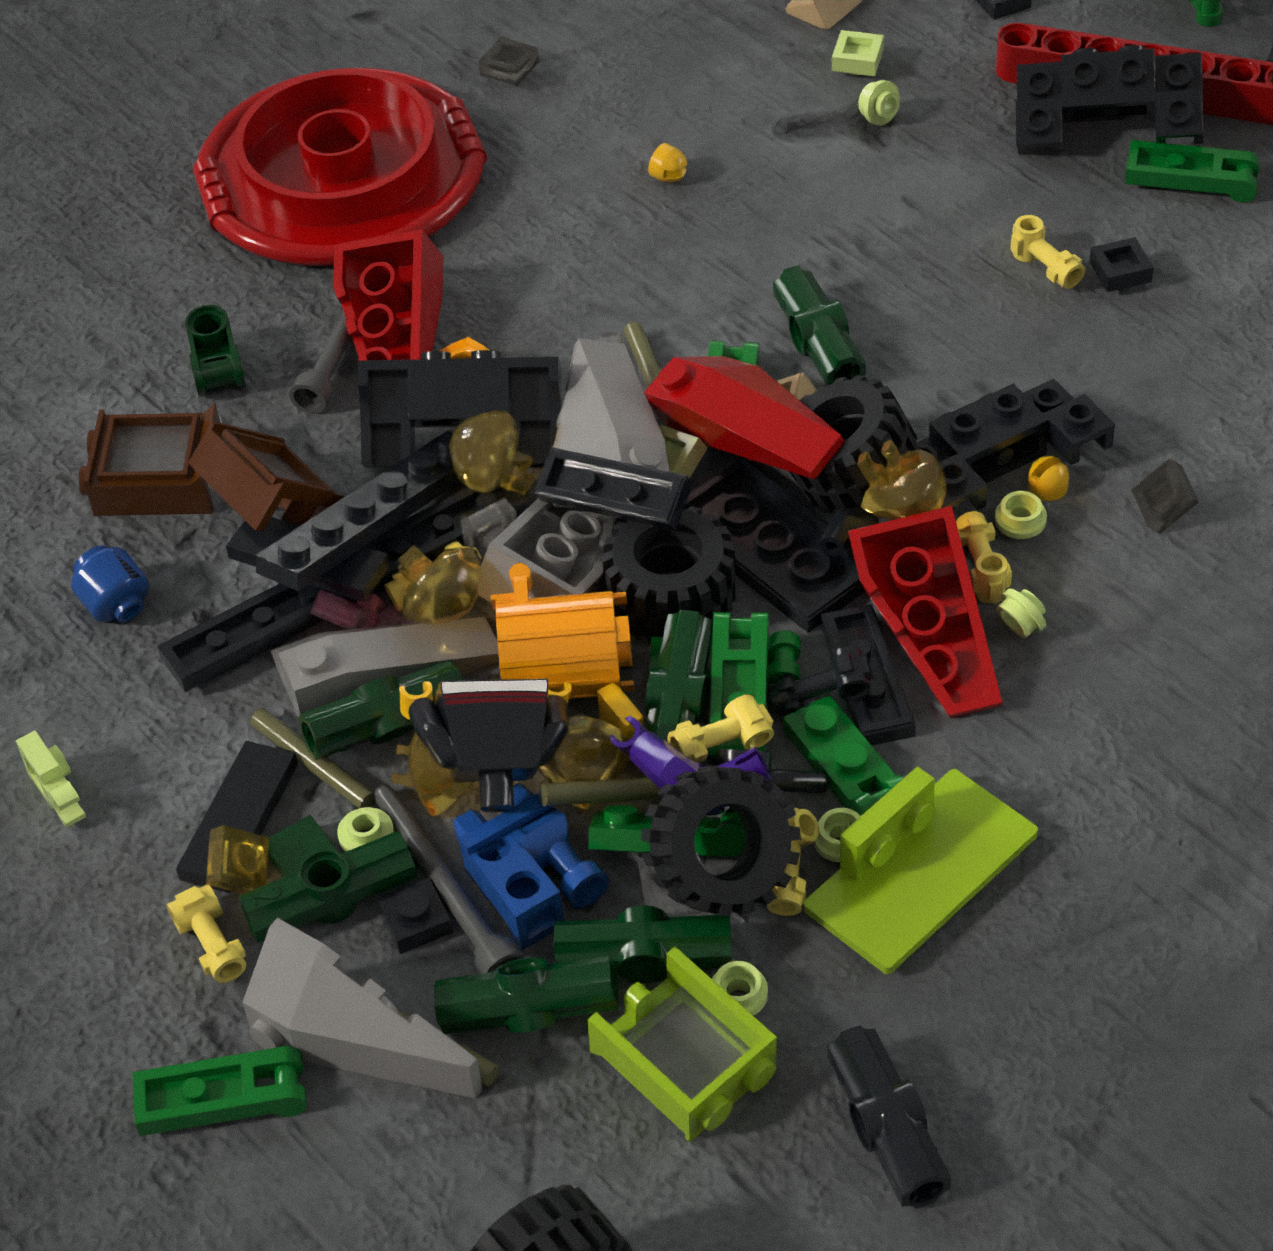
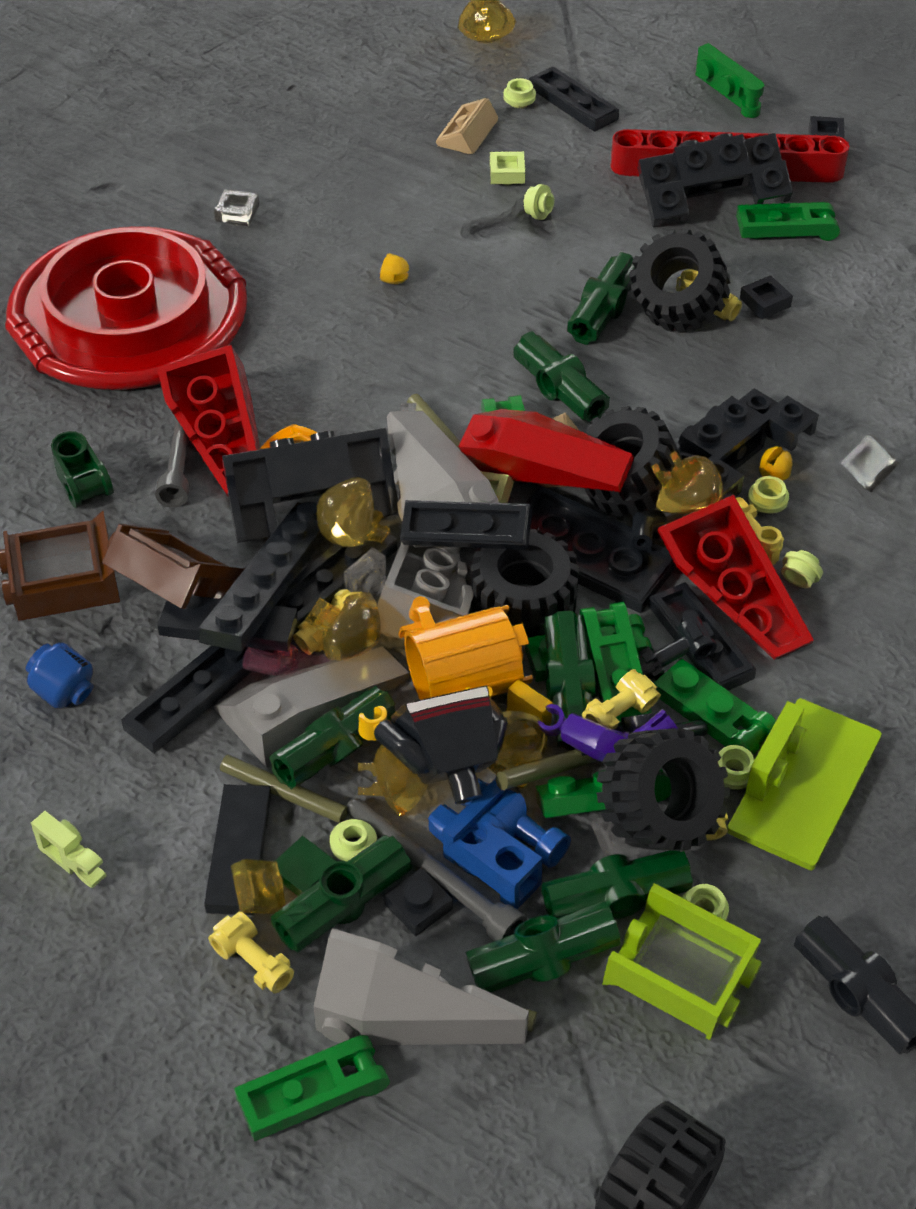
camera: 20 degrees left, 0 degrees up
(911, 236) = (602, 299): none -> dark green piece
(984, 205) = (669, 256): none -> black tyre

